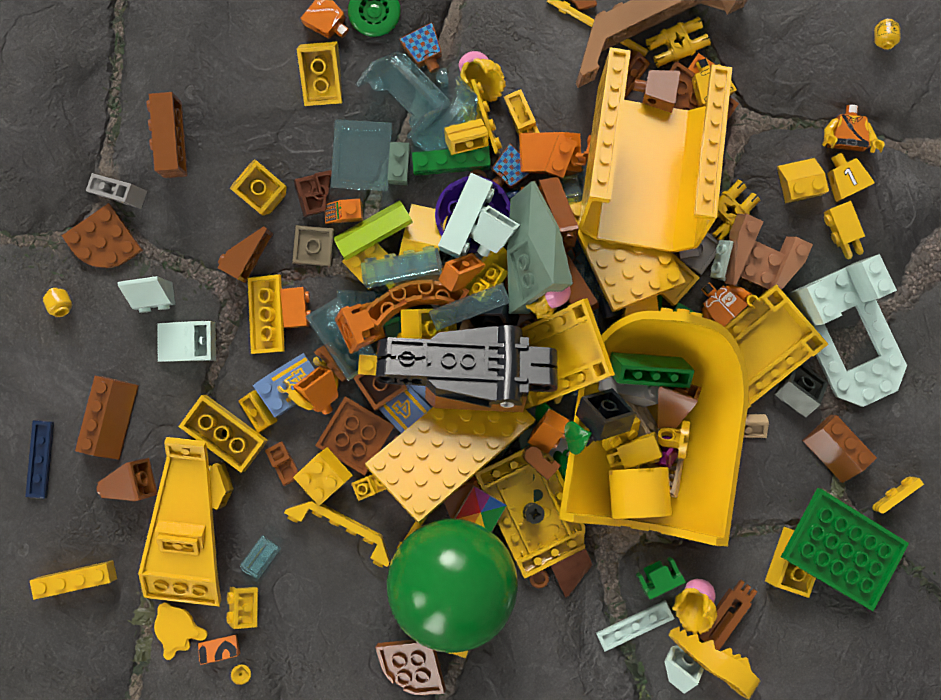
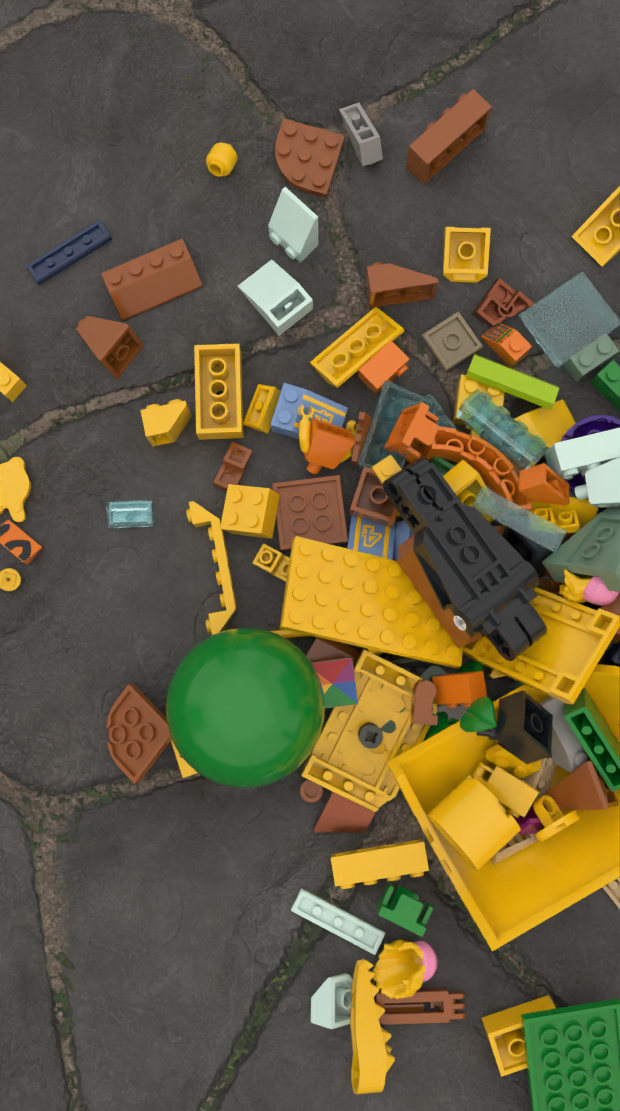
camera: 60 degrees right, 5 degrees down
(180, 542) = (88, 429): yellow wing -> none
(242, 607) = (72, 533): yellow bracket -> none
(619, 570) = (378, 863): none -> yellow brick

